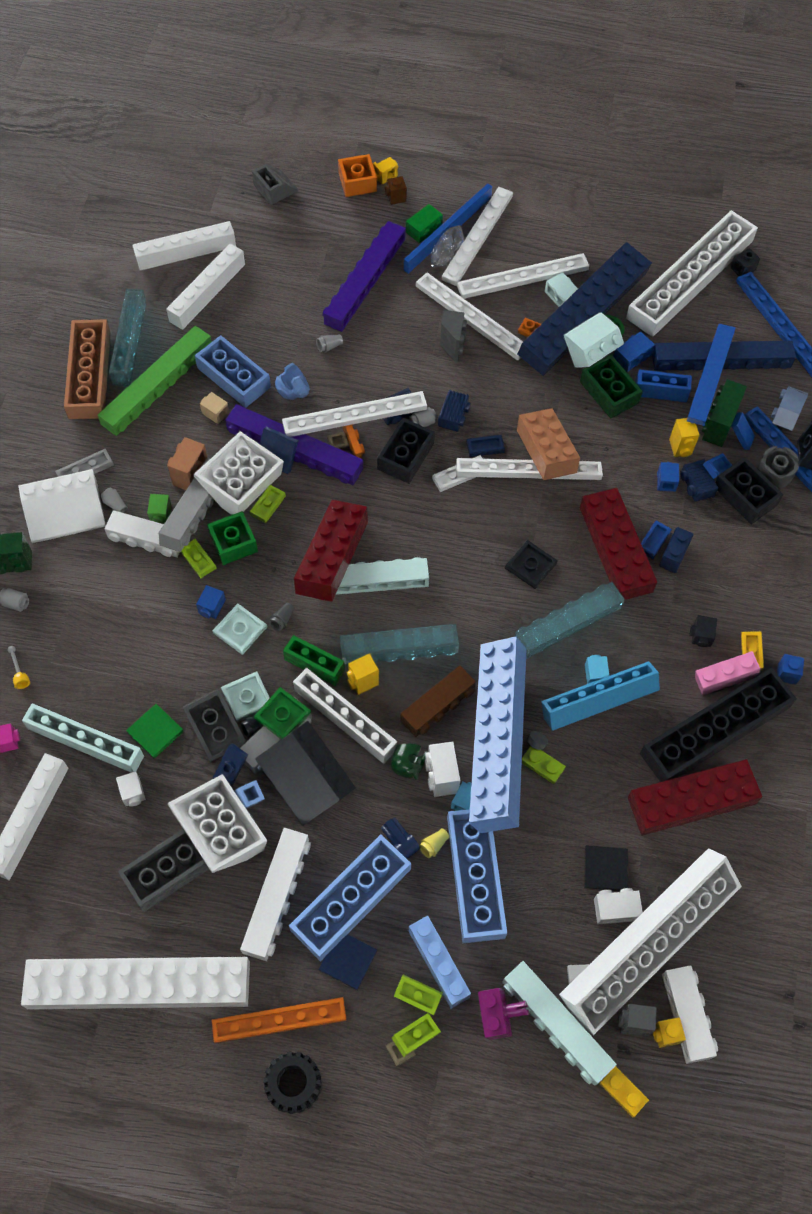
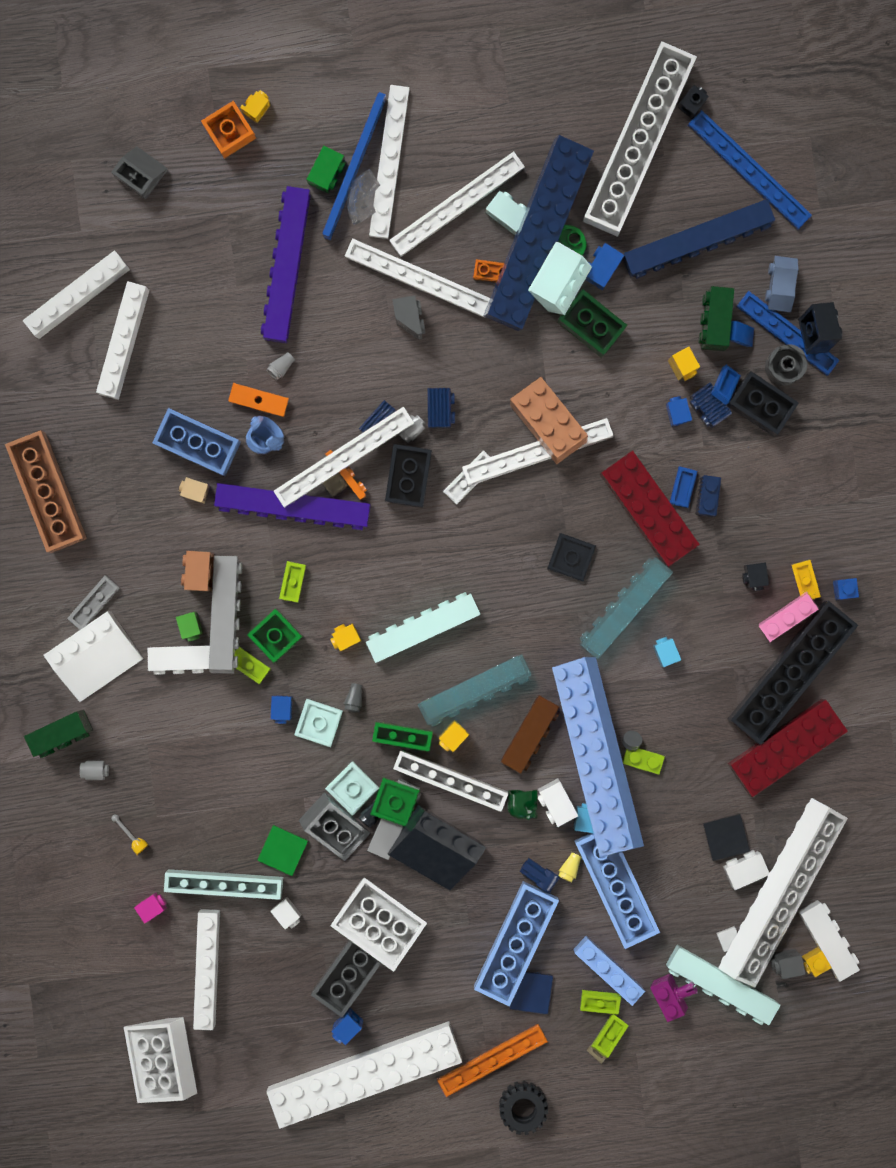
camera: 20 degrees left, 25 degrees up
(113, 500) = (140, 631): light grey cone -> none
(127, 337) = (69, 437): clear light blue brick -> none
(140, 920) = (347, 1027): none -> blue brick
(153, 381) = (121, 477): bright green brick -> none
(231, 763) = (366, 863): dark blue plate -> none
(239, 473) = (254, 566): white slope -> none
(249, 794) = (393, 885): light blue brick -> none
(275, 894) = (449, 960): white brick -> none
(281, 446) = (280, 522): dark blue tile -> none
(293, 560) = (345, 637): none -> yellow brick
(306, 363) = (247, 397): none -> orange tile
(331, 550) = (378, 620): dark red brick -> none
(396, 190) = (278, 134): reddish brown brick -> none
(485, 445) = (484, 435): dark blue tile -> none
(600, 695) = (678, 679): dark azure brick -> none
(624, 1091) = (792, 1019): yellow plate -> none
(664, 385) = (645, 304): blue brick -> none
(711, 375) = (693, 281): blue tile -> none

